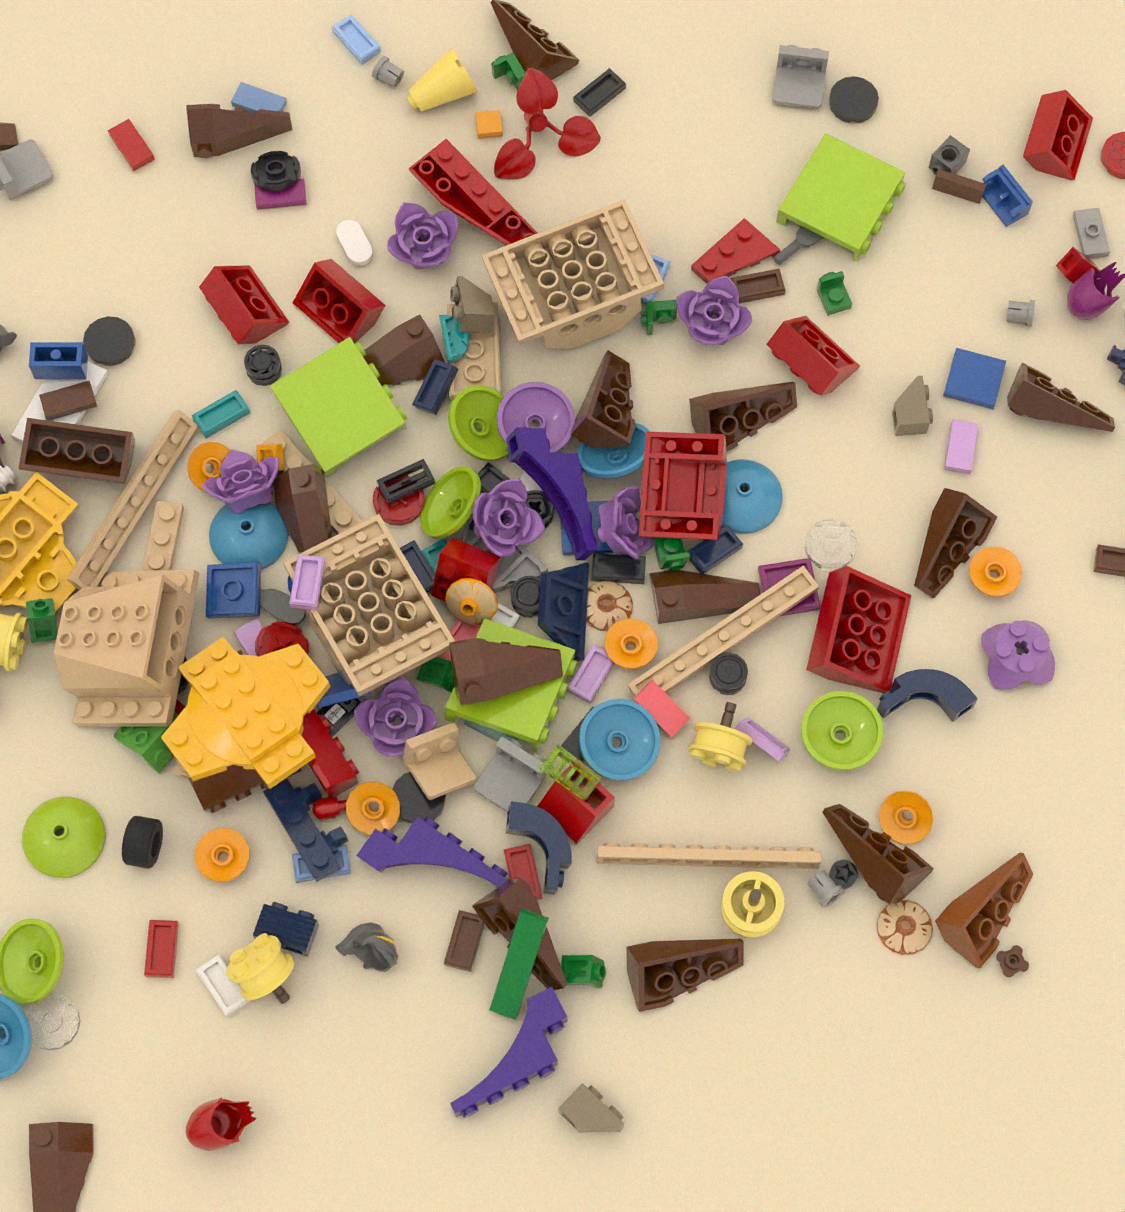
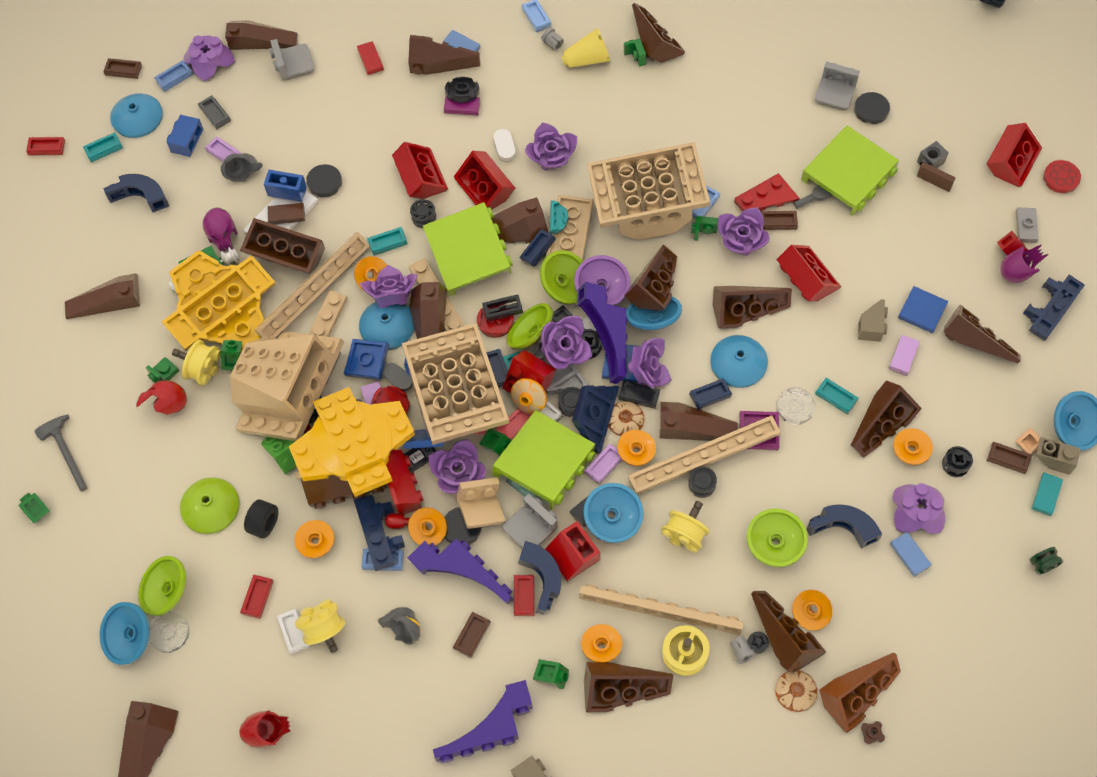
camera: 15 degrees right, 5 degrees down
(270, 450) = (414, 270): light orange tile -> none
(293, 930) = (349, 601): dark blue brick -> none
(307, 582) = (414, 359): lavender tile -> none
(469, 194) = (588, 123): red wedge -> none
(472, 306) = (574, 198): dark tan slope -> none
(488, 124) = (613, 83): light orange tile -> none
(495, 669) = (535, 444): reddish brown wedge -> none
(500, 914) = (512, 625): reddish brown wedge -> none
(518, 963) = (504, 658): green tile -> none
(533, 96) = (648, 63): red plant -> none
(564, 780) = (576, 523): clear neon green slope -> none
(599, 92) = (694, 75): black tile -> none
(637, 906) = (603, 635): none -> light orange dish
(662, 708) = (649, 497): coral tile -> none
(670, 553) = (678, 389): green bracket -> none
(683, 485) = (696, 343): red slope -> none
(763, 739) = (718, 533): lavender tile -> none
(833, 293) = (832, 233): green bracket -> none
(858, 630) = (804, 469): red slope -> none
(882, 520) = (836, 396): none -> teal tile
(1006, 196) = (969, 189): blue hinge -> none
(1018, 717) = (910, 554): none -> medium blue tile
(1021, 312) = (965, 269): light grey bush -> none
(1057, 580) = (957, 461): none -> black wheel

